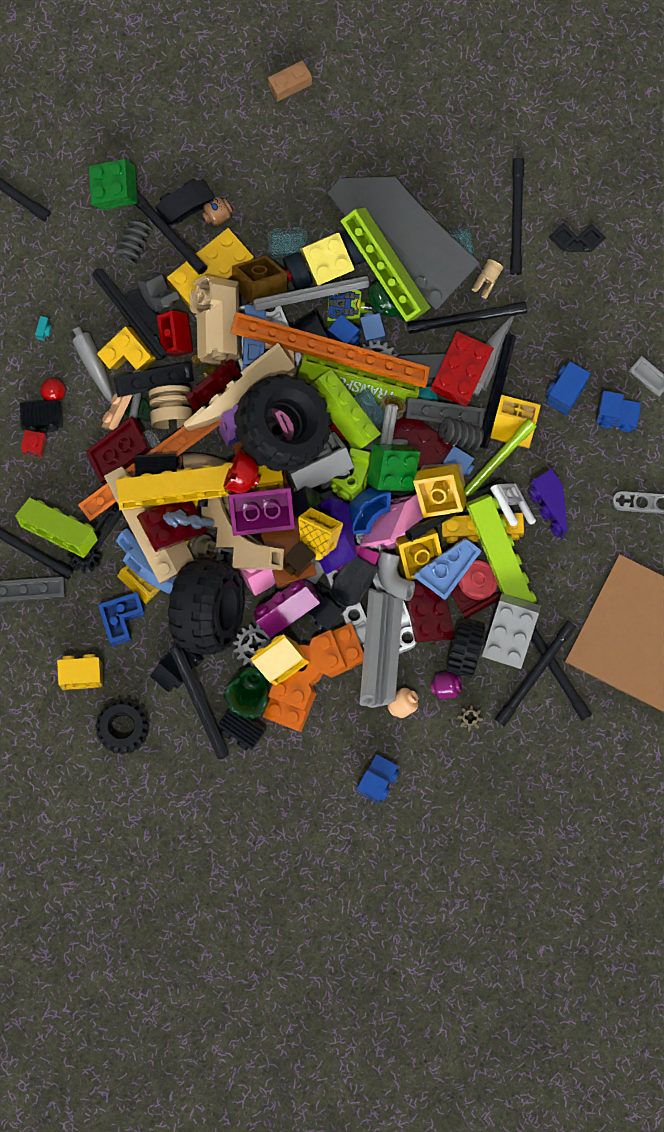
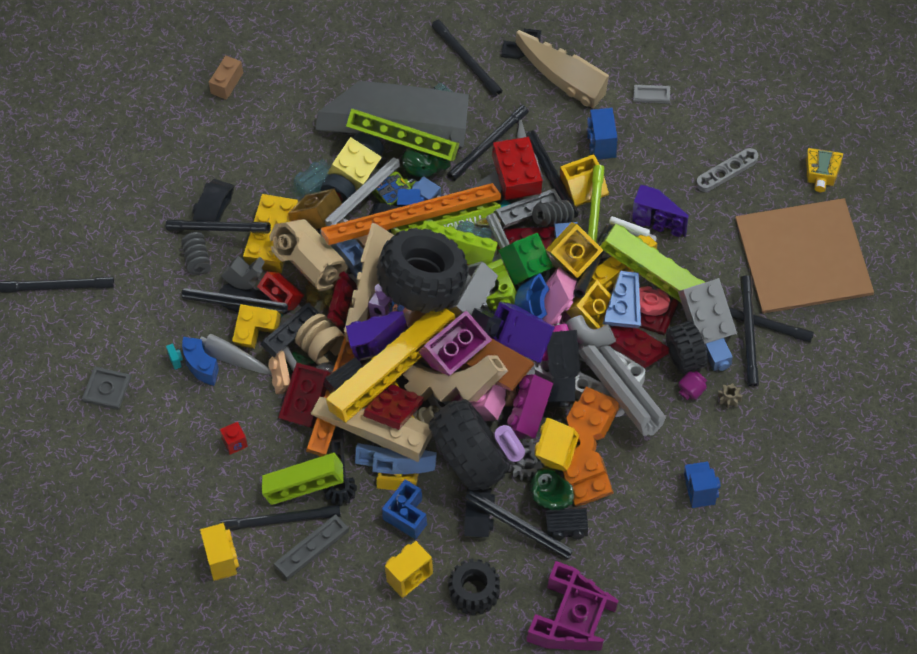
camera: 35 degrees left, 20 degrees down
(41, 415) = (222, 414): black brick -> none
(52, 389) = (217, 392): red piece -> none
(58, 347) = (199, 363): none -> blue brick
(113, 184) = (148, 224): green brick -> none
(180, 517) = (396, 396): sand blue animal -> none
(184, 815) = (577, 614): none -> magenta wedge
(201, 447) = (373, 335): none -> dark purple slope
(217, 211) = (243, 192): medium nougat head -> none
(242, 474) = (422, 324): red cylinder -> none
(244, 626) = (509, 443): none -> lavender piece
(299, 560) = (514, 357): dark brown brick -> none
(319, 532) = (513, 328): yellow torso -> none
(405, 703) = (674, 418): light nougat head -> none
(489, 275) = (480, 105): tan hinge -> none
(492, 675) = (719, 354): none -> medium blue brick
(589, 306) = (567, 72): none -> tan wedge
(617, 412) = (649, 126): blue brick -> none

